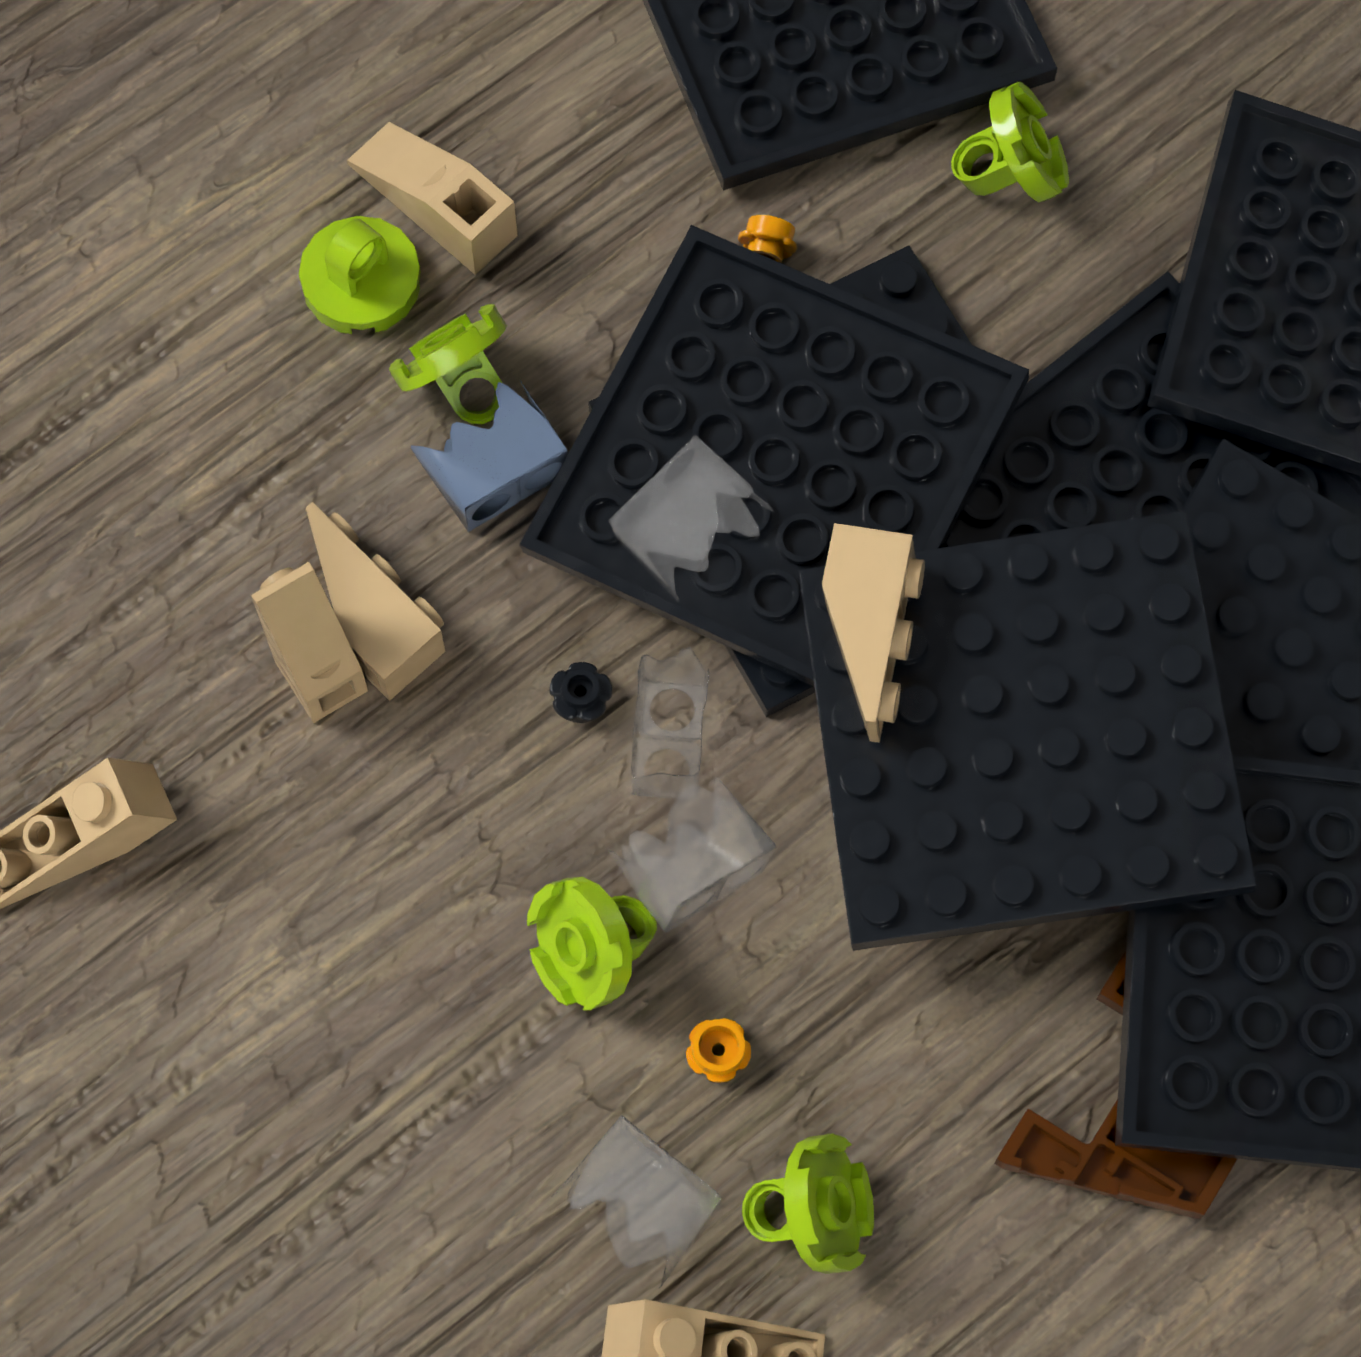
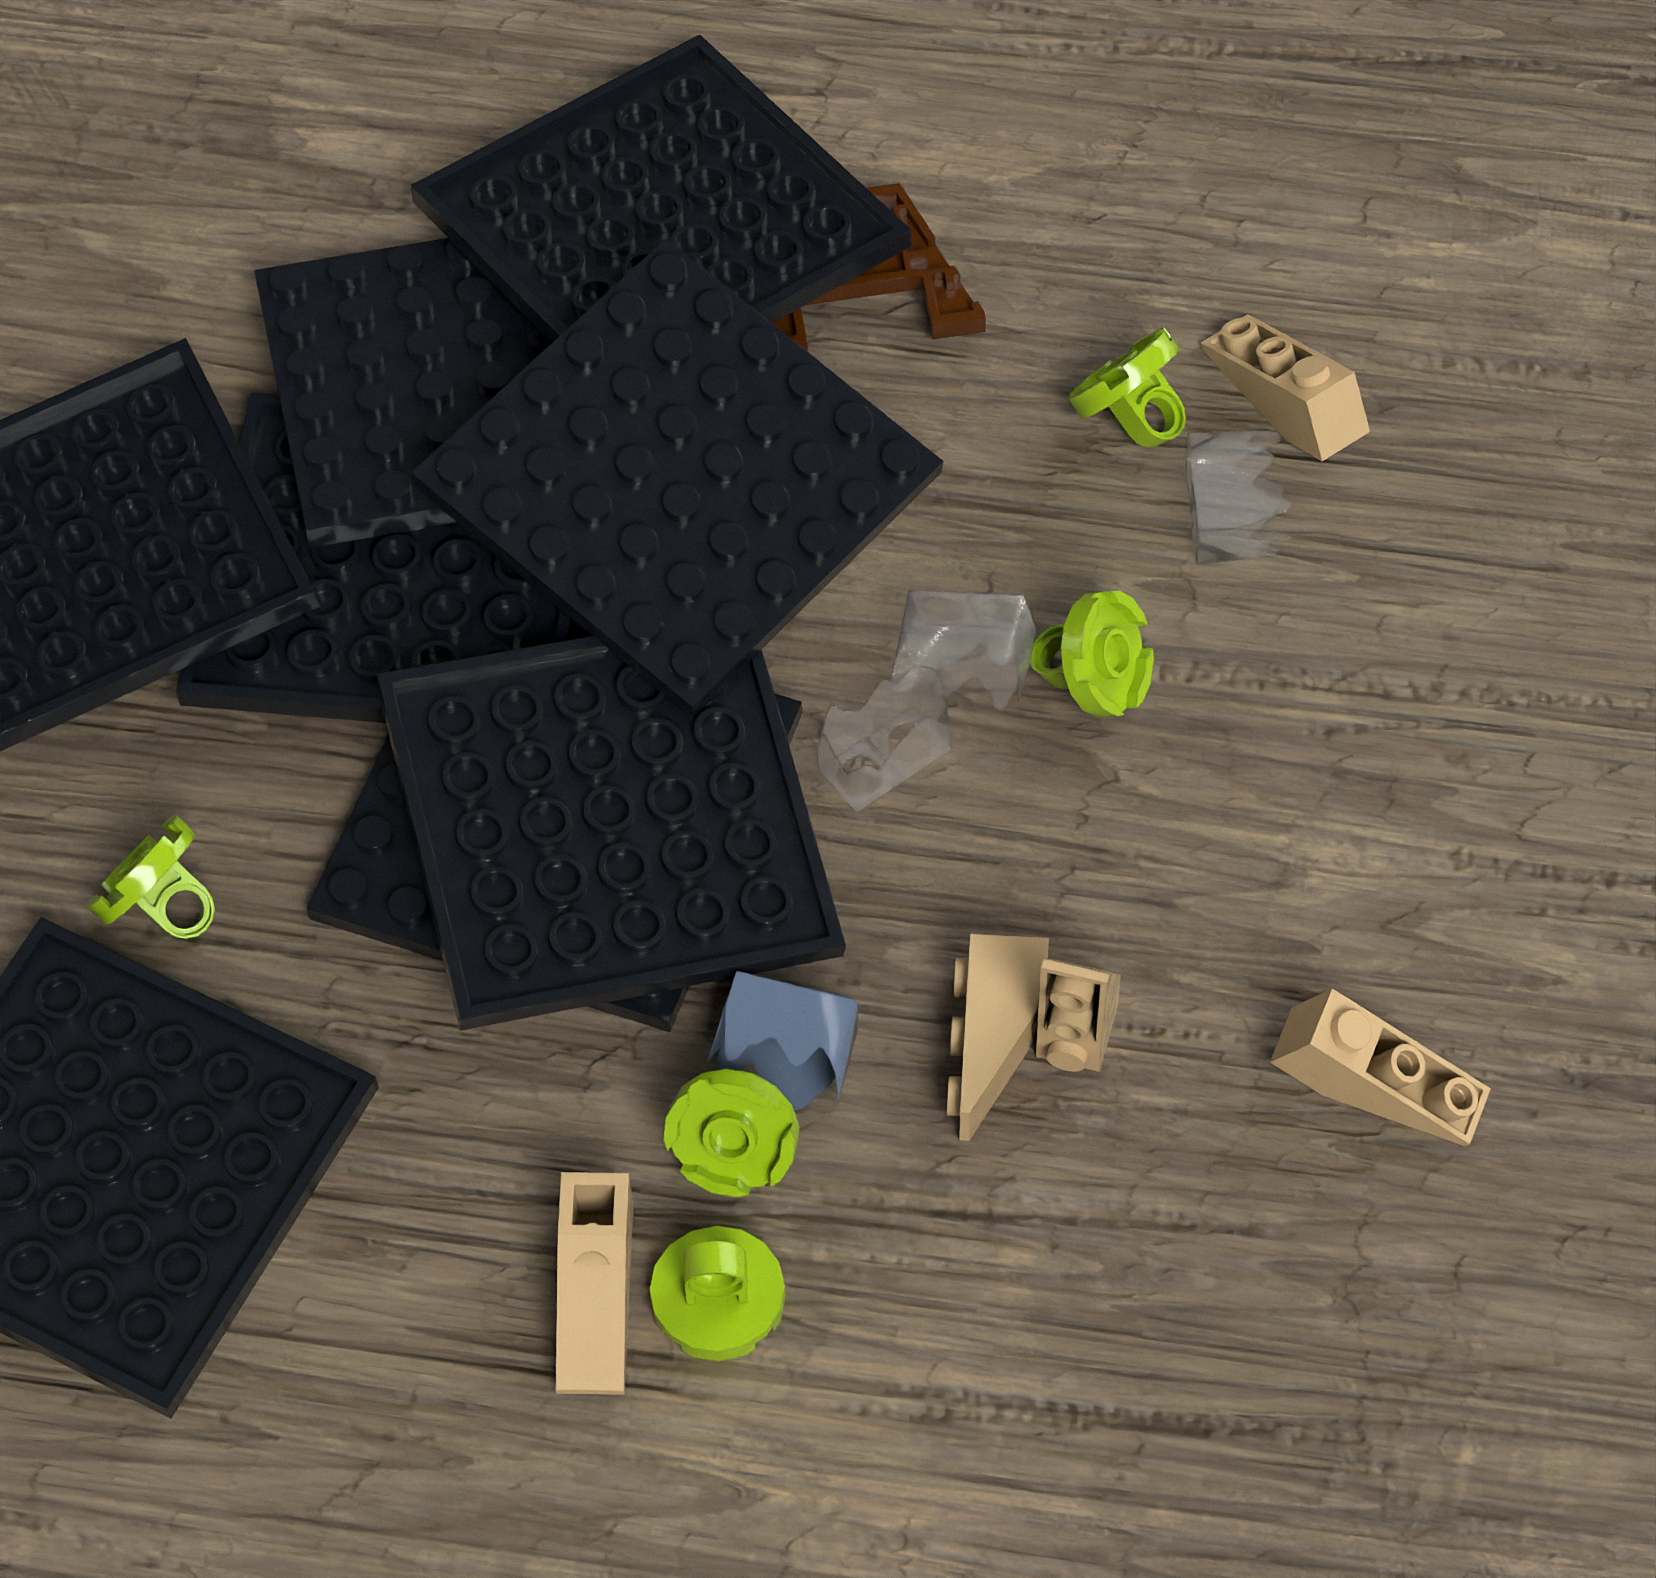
camera: 130 degrees left, 10 degrees down
(580, 708) = (912, 848): black plate -> none
(681, 510) = (725, 815): clear piece -> none
(718, 1032) = (1082, 525): light orange plate -> none
(769, 237) = (398, 1010): light orange plate -> none
(867, 597) = (690, 605): tan slope -> none

